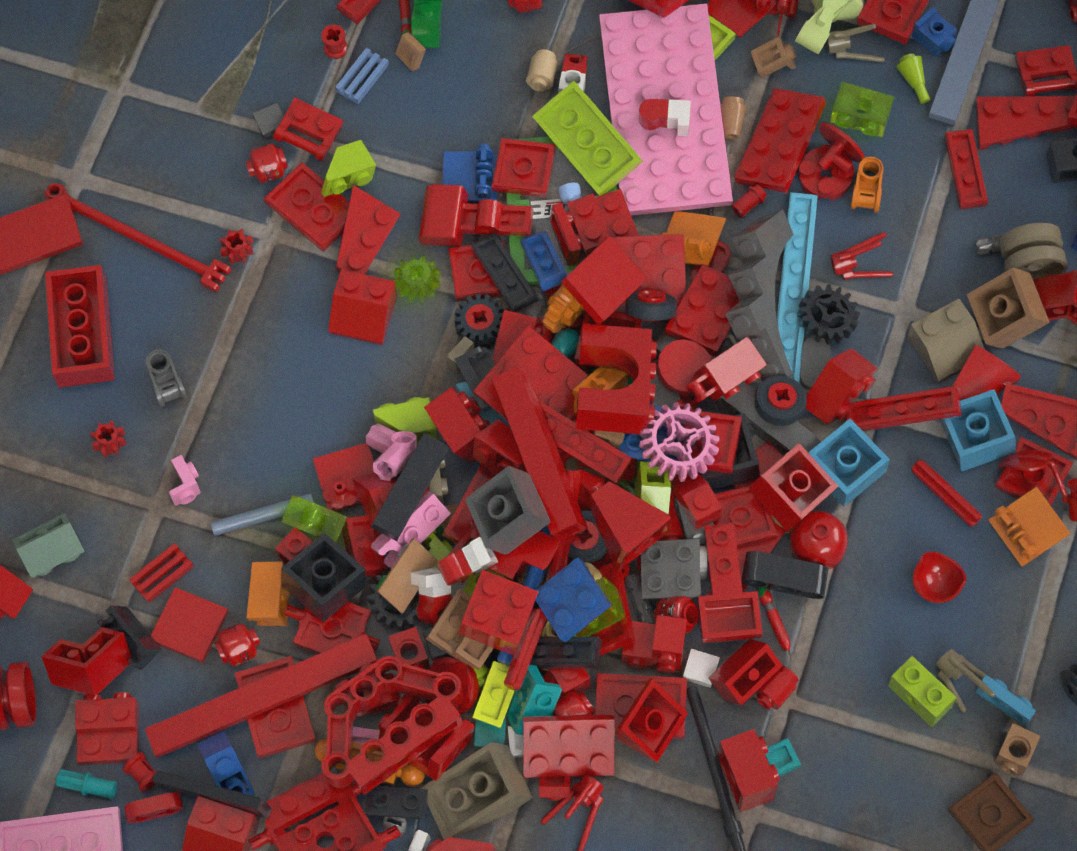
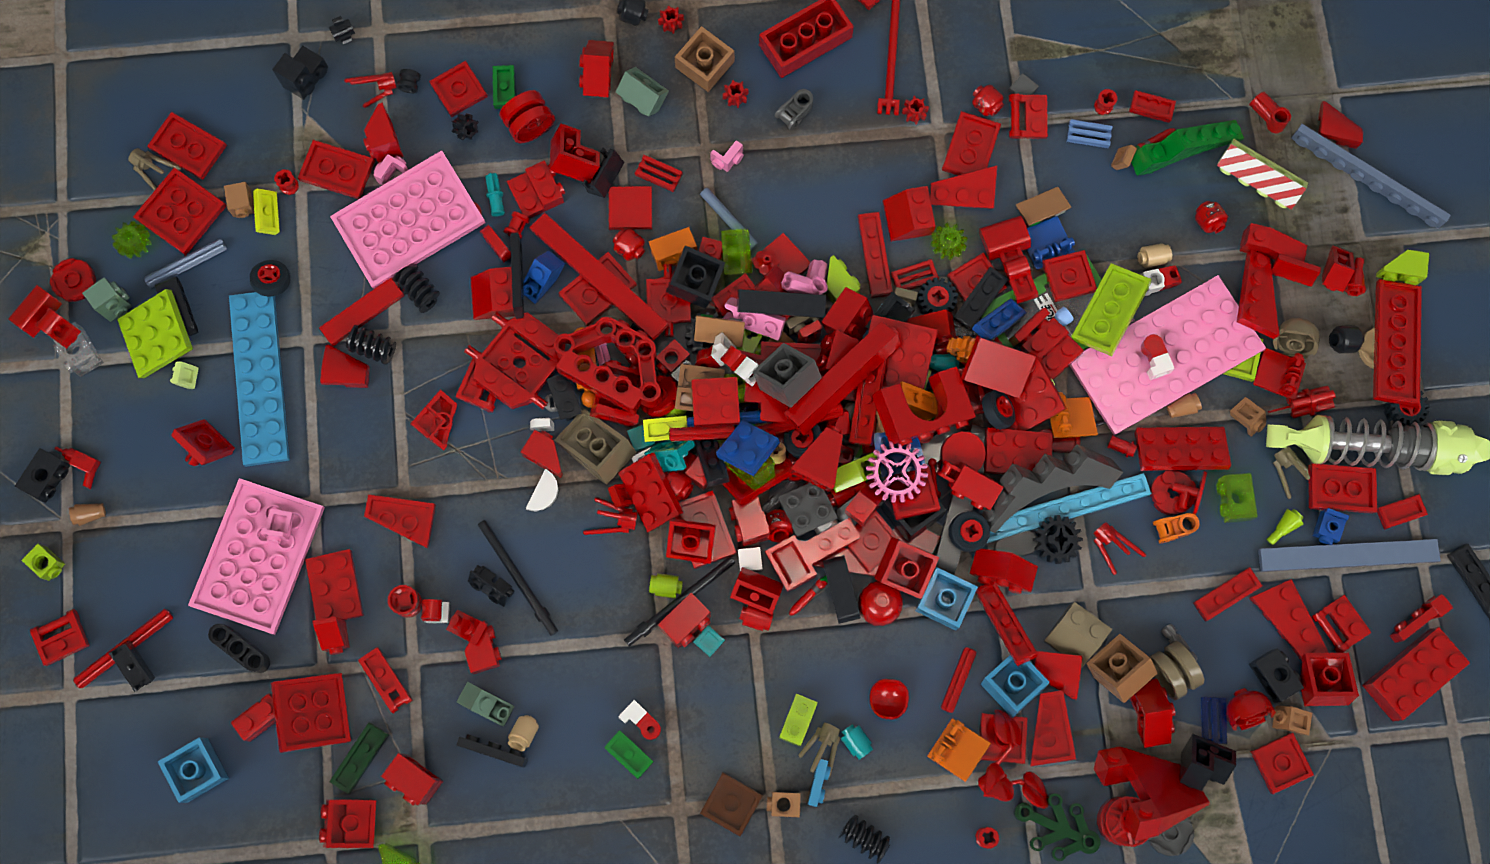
camera: 60 degrees right, 10 degrees up
(46, 454) = (704, 59): none -> medium nougat brick
(349, 167) = (1009, 156): lime slope -> none
(391, 368) = (875, 254): none -> red tile
(426, 159) = (1043, 206): none -> medium nougat piece
(438, 357) = (897, 282): none -> red tile
(456, 478) = (809, 333): none -> red plate
(691, 779) = (665, 585): none -> lime brick
(974, 636) = (856, 741): none -> teal brick

